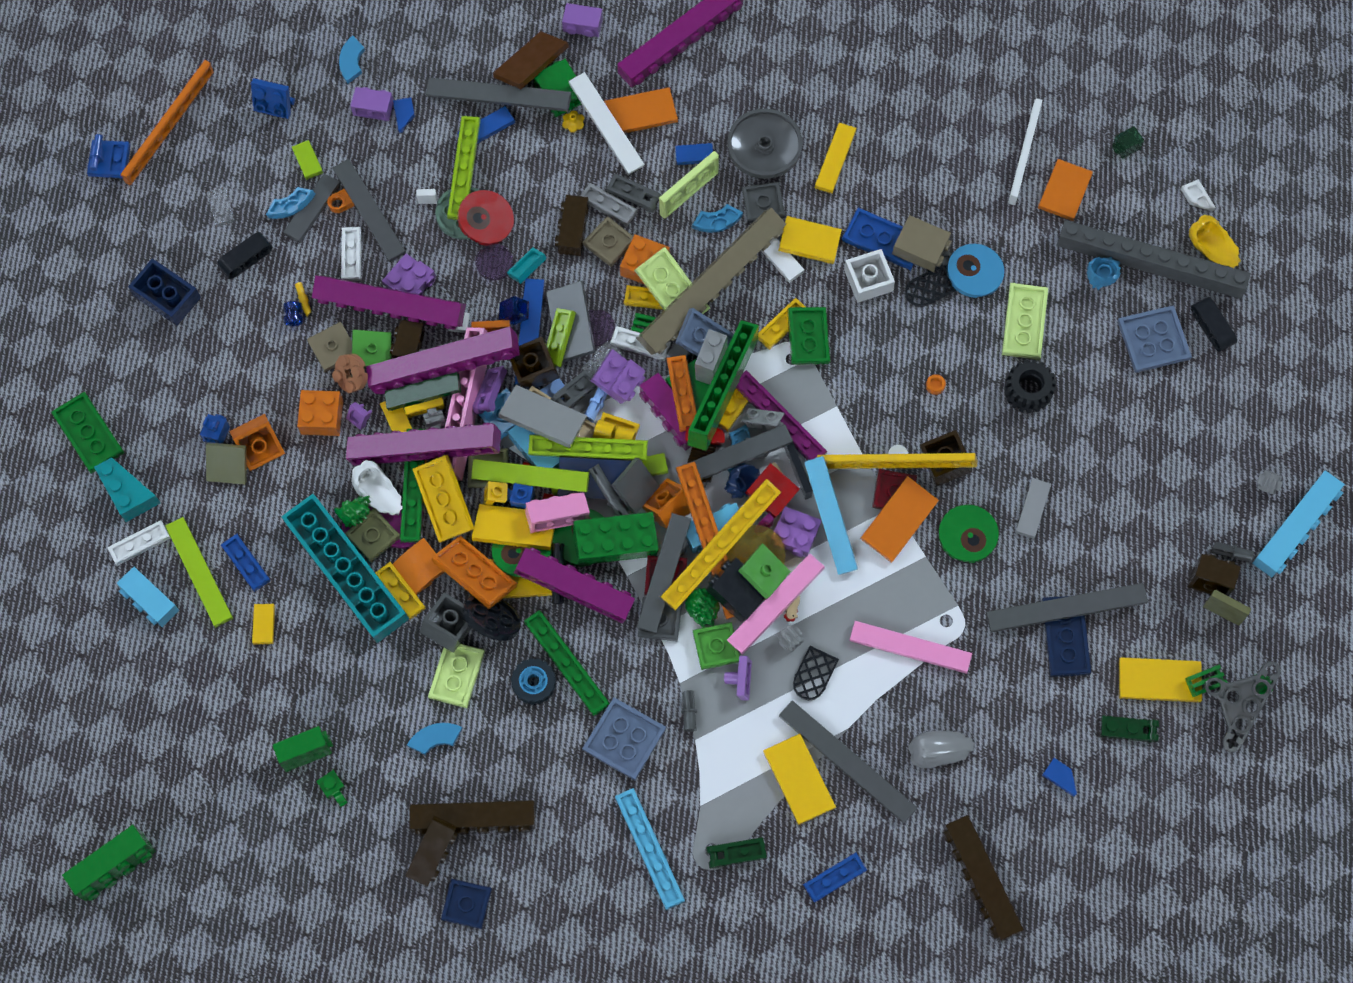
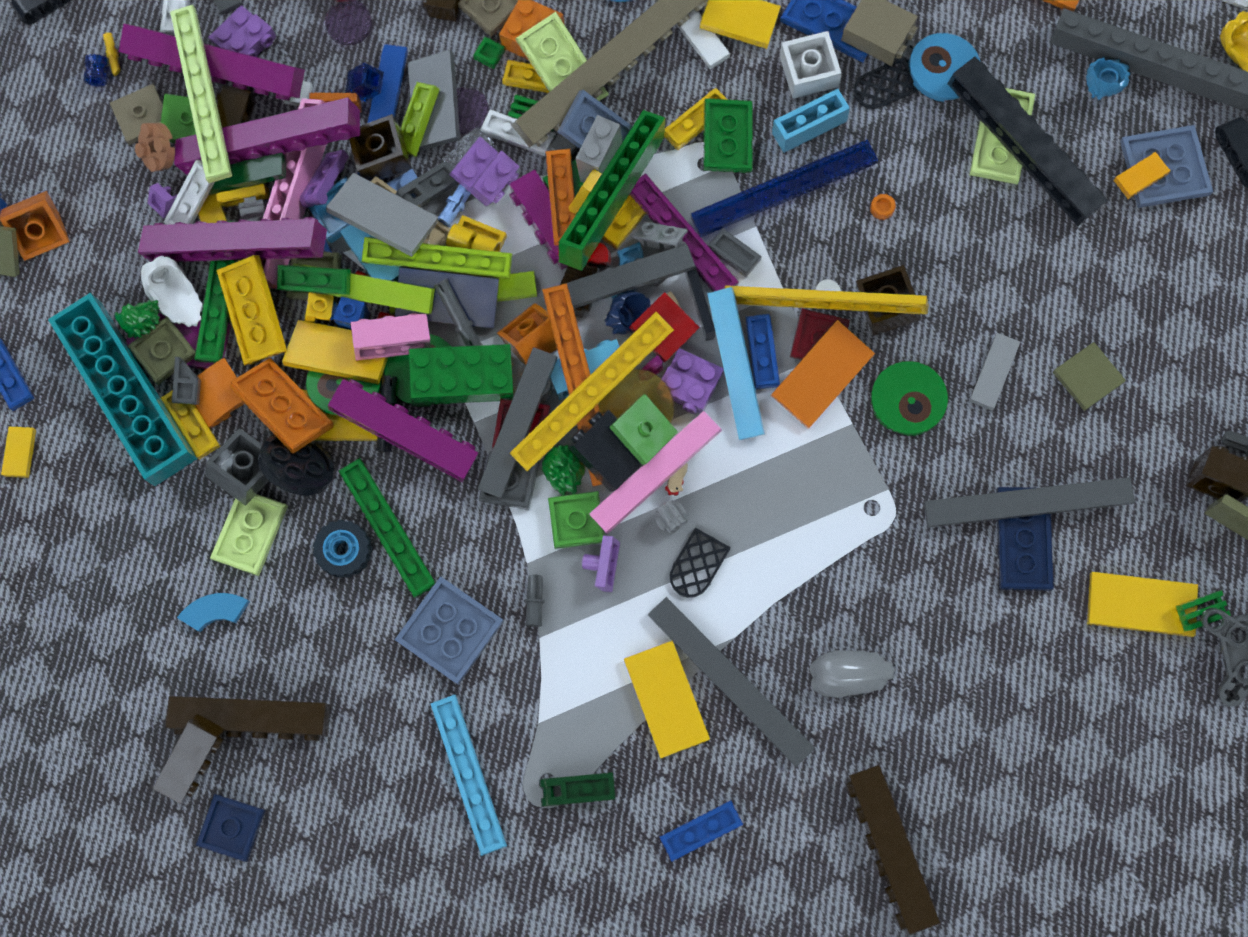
camera: 10 degrees right, 5 degrees up
(303, 748) = (43, 614): green brick -> none
(320, 413) = (114, 194): orange brick -> none
(332, 786) = (78, 664): green plate -> none
(384, 409) = (190, 197): none -> white tile
(386, 329) = (201, 94): none -> yellowish green tile
(395, 561) = (185, 384): none -> dark grey tile
(491, 470) = (313, 279): none -> green tile
(526, 265) = (387, 28): teal tile -> none
(611, 280) = (489, 52): none -> green tile
(635, 485) = (492, 309): dark grey tile -> none
(702, 388) = (584, 191): none -> yellow tile
(822, 428) = (734, 252): none -> dark grey tile
(850, 504) = (762, 351): none -> blue tile
(856, 374) = (783, 188): none -> clear blue plate
(873, 320) = (810, 120): none -> medium azure brick
(910, 647) = (824, 539): bright pink tile -> none
(1036, 373) = (1007, 198): black tyre -> none
(1044, 326) = (1026, 141): none -> black brick
(1061, 776) = (1004, 721): blue tile -> none
(1106, 507) = (1089, 376): none -> olive tile
(1129, 728) = (1097, 665): dark green plate -> none
(1135, 348) = (1141, 175): none -> light orange tile

